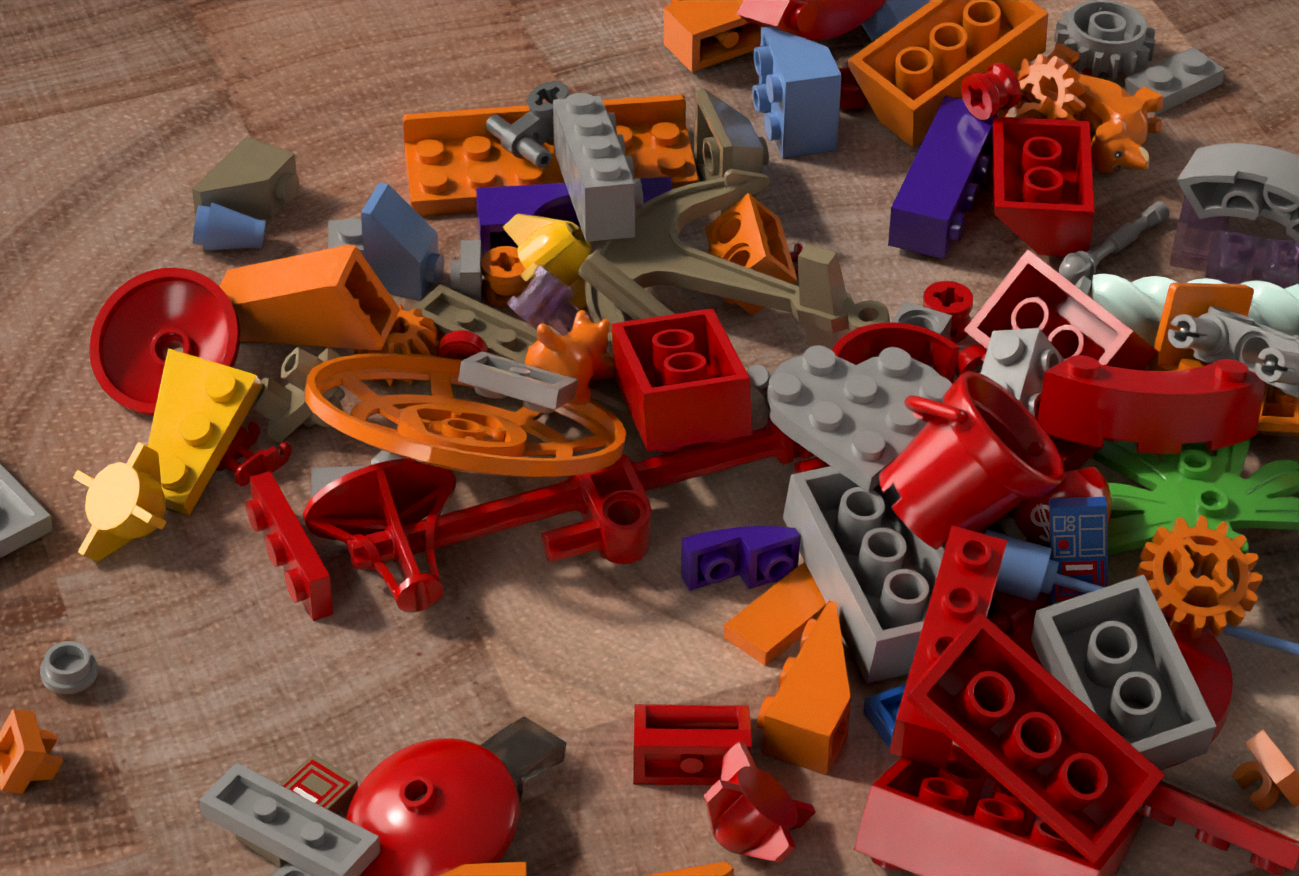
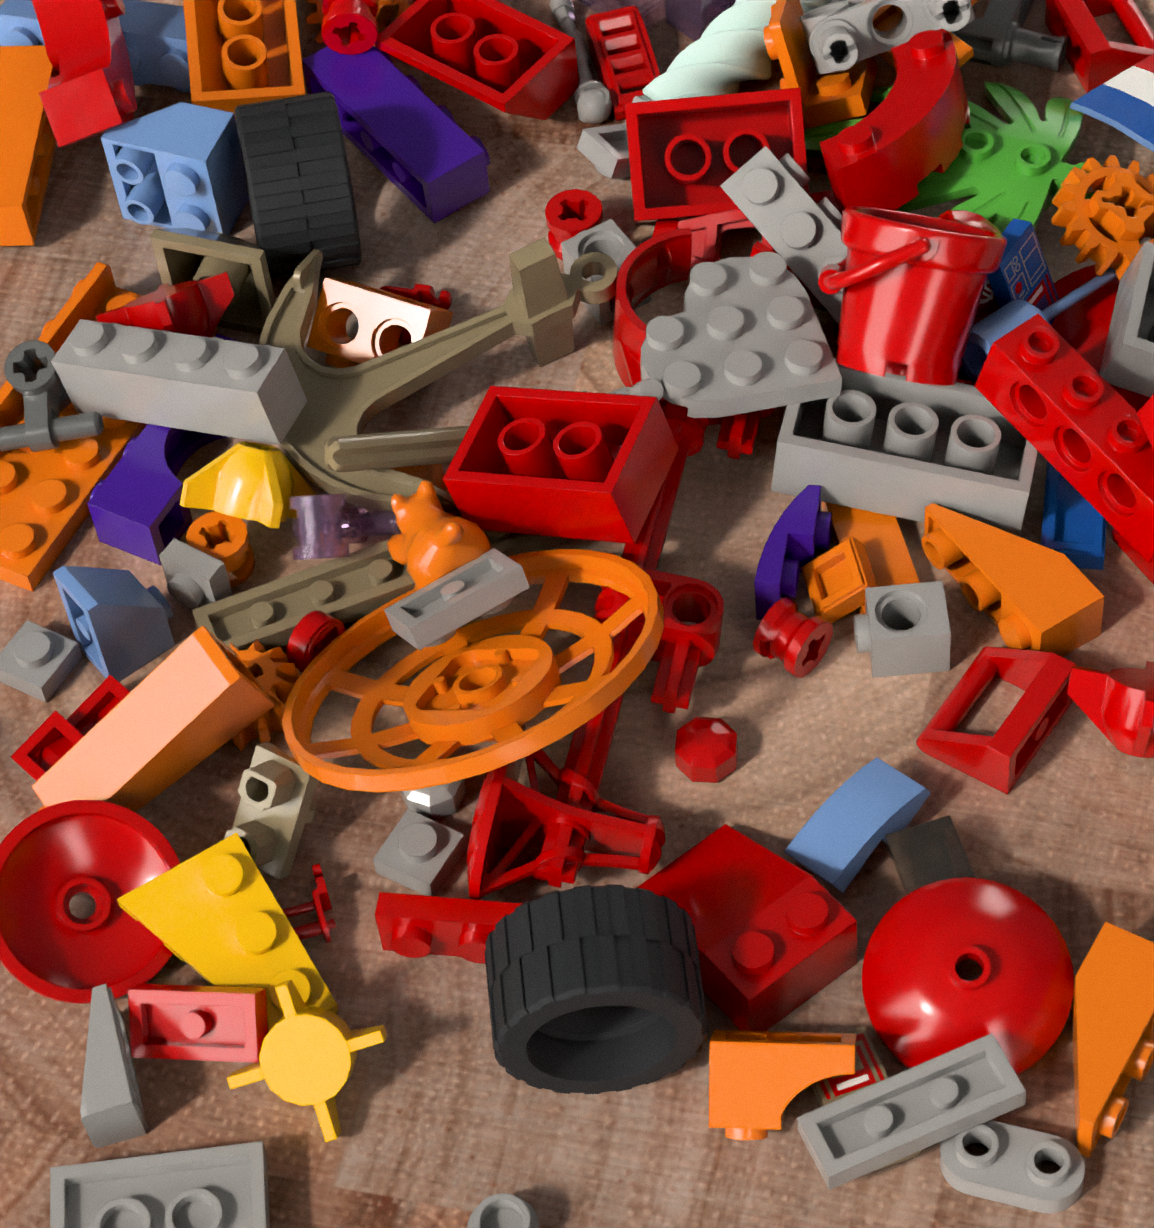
camera: 50 degrees left, 10 degrees up
(42, 429) = (110, 1089): none -> light grey slope
(113, 432) = (197, 1022): none -> plate
(252, 600) = (595, 989): none -> black tyre
(267, 734) = (762, 1071): none -> orange arch
(390, 682) = (760, 927): none -> red slope
(536, 596) = (706, 749): none -> red tile
(545, 698) = (854, 822): none -> medium blue slope
(656, 146) = (180, 308): none -> red piece
(664, 592) = (792, 637): none -> red wheel
(723, 650) = (905, 629): none -> light grey brick
(739, 596) = (839, 580): none -> orange tile
(821, 142) = (299, 182): none -> black tyre
(1145, 243) = (616, 33): none -> red slope

